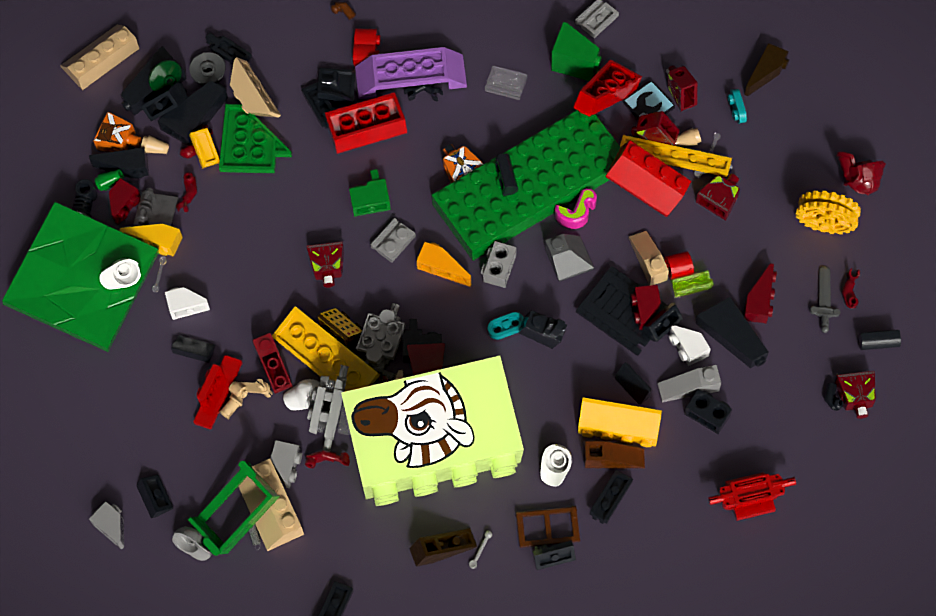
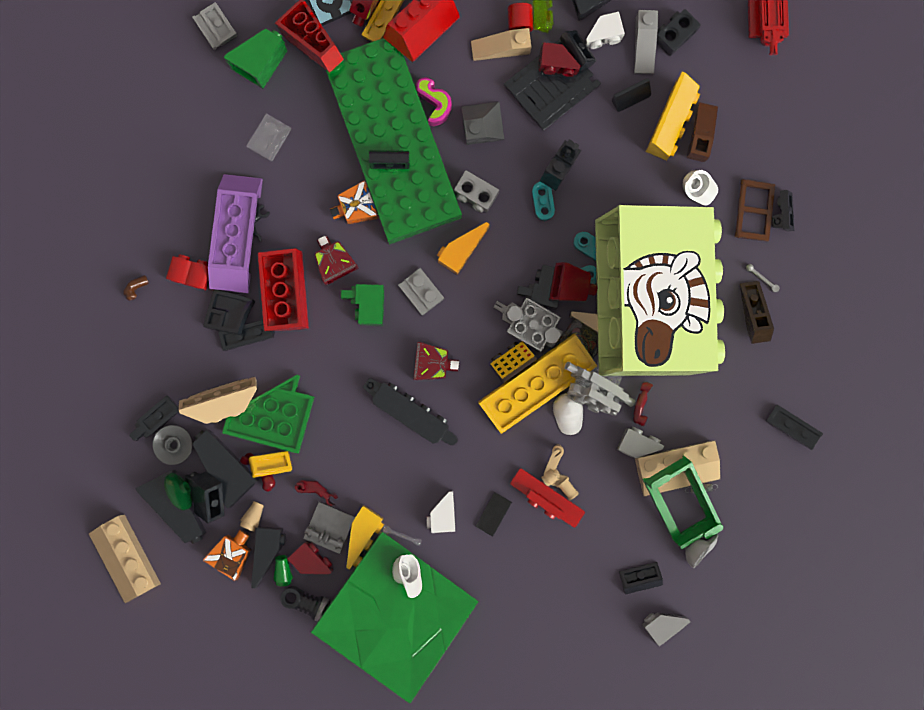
camera: 85 degrees left, 20 degrees up
(272, 362) = (528, 438): dark red slope -> none
(274, 254) = (408, 413): none -> black hinge
(403, 159) = (333, 261): none -> dark red torso
(611, 497) = (740, 144): black hinge -> none

